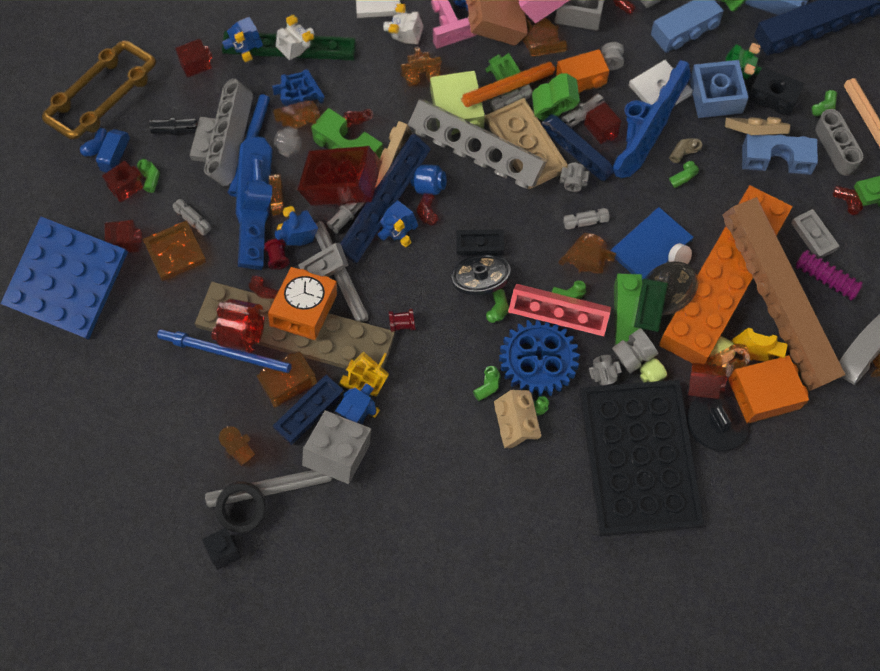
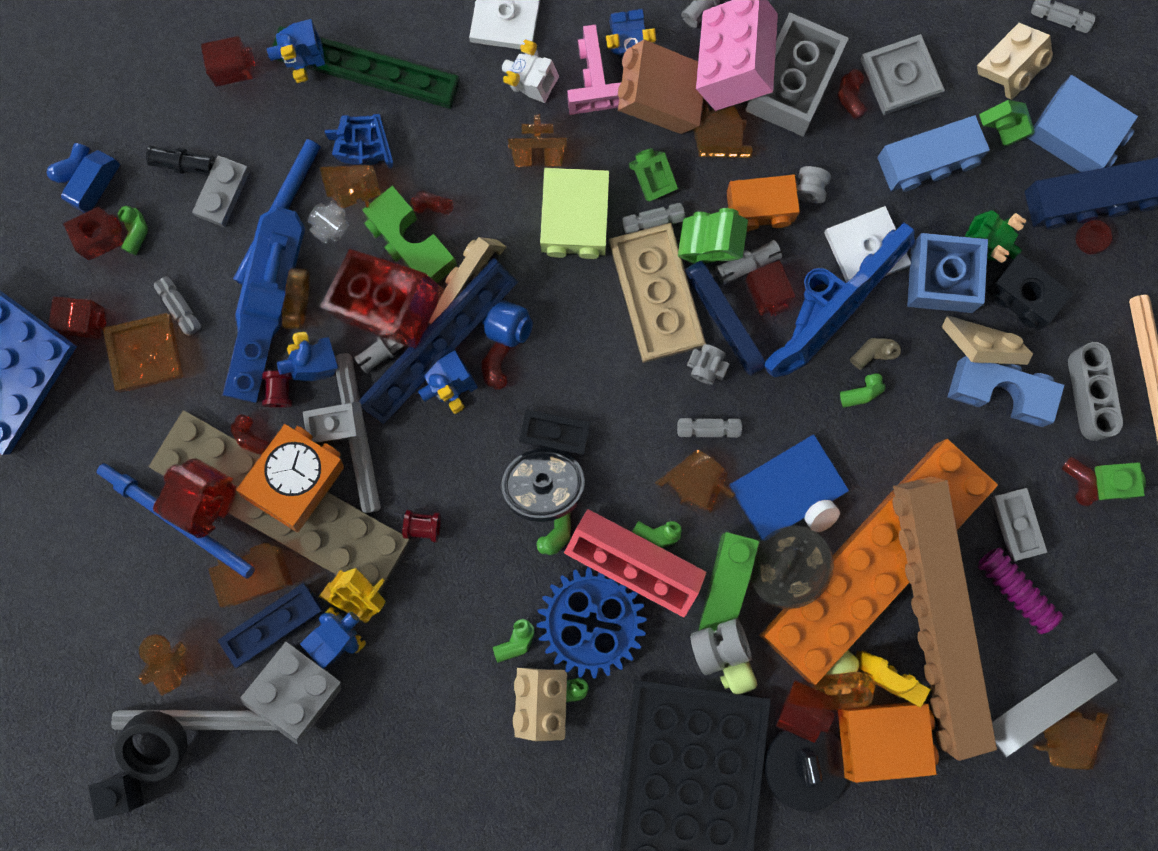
camera: 15 degrees right, 15 degrees up
(90, 120) = (36, 91): pearl gold bar -> none
(228, 132) = (249, 190): light grey beam -> none
(294, 38) = (370, 63): white piece -> none
(507, 84) = (651, 202): orange axle -> none
(532, 164) = (600, 291): light grey brick -> none
(605, 370) = (674, 662): light grey gear -> none
(651, 304) = (758, 591): dark green tile -> none
(808, 52) = (1093, 237): none -> clear red tile
(829, 103) = (1094, 330): bright green arm -> none

